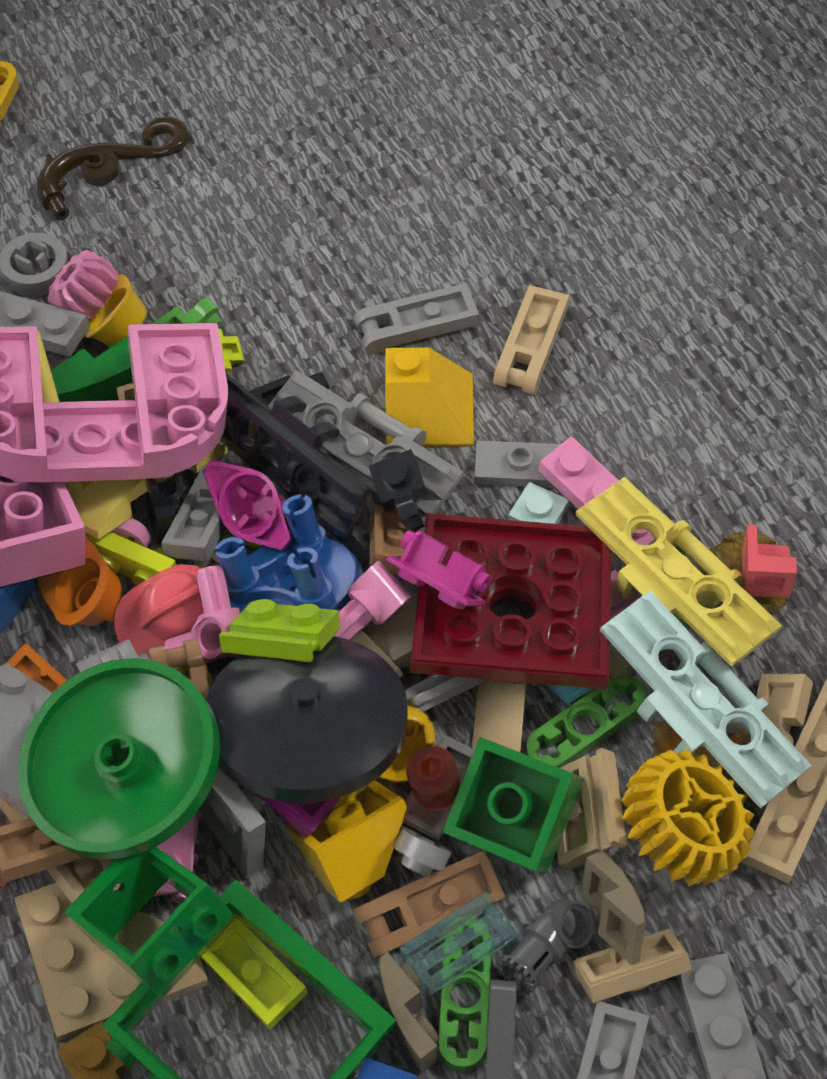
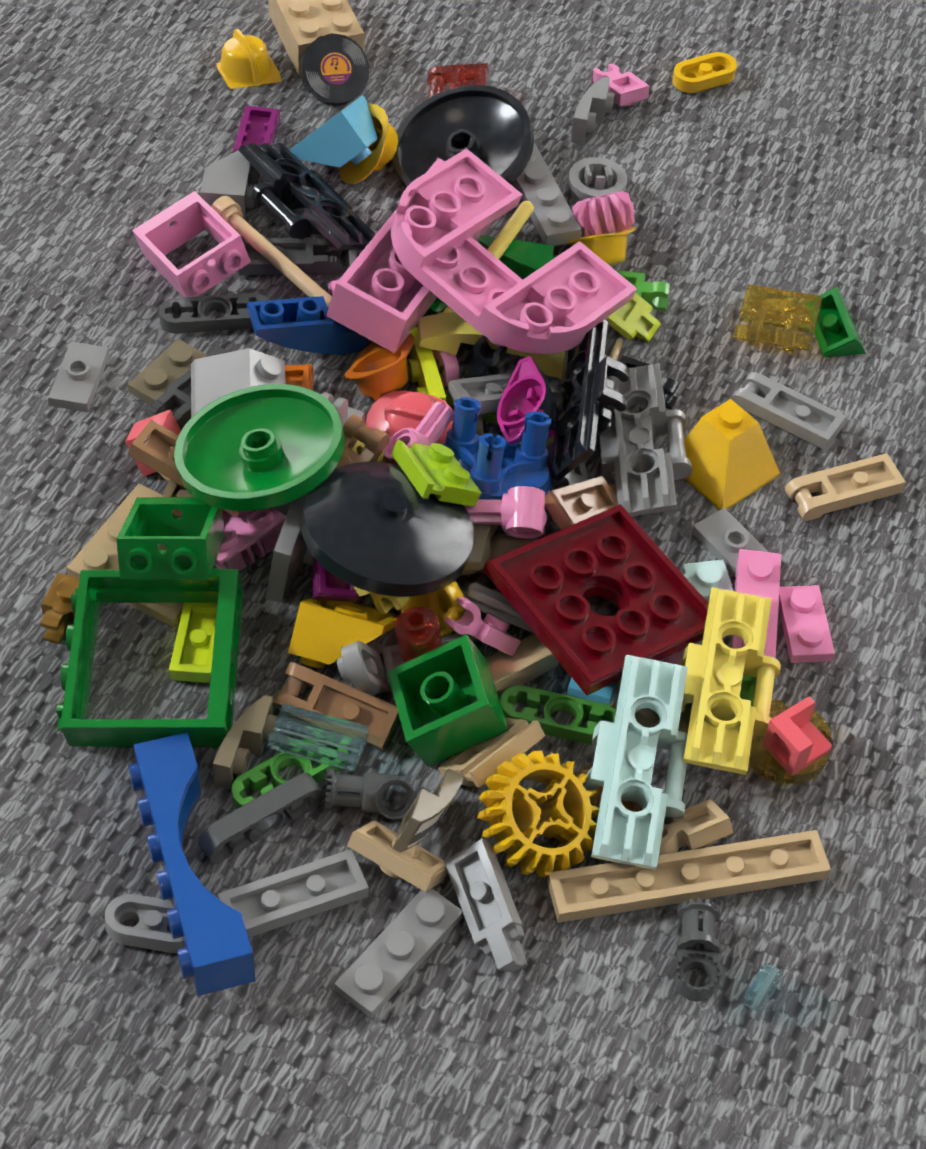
camera: 45 degrees right, 5 degrees down
(107, 166) = (724, 161): dark brown plant -> none
(309, 241) = (778, 309): none -> clear yellow plate
(356, 218) = (836, 328): none -> green slope
(399, 485) = (623, 473): black plate -> none
(423, 565) = (569, 529): dark pink hinge -> none
(458, 716) = (488, 630): none -> bright pink plate
(649, 474) = (805, 624): none -> bright pink plate
(737, 927) = (488, 904): none -> light grey hinge

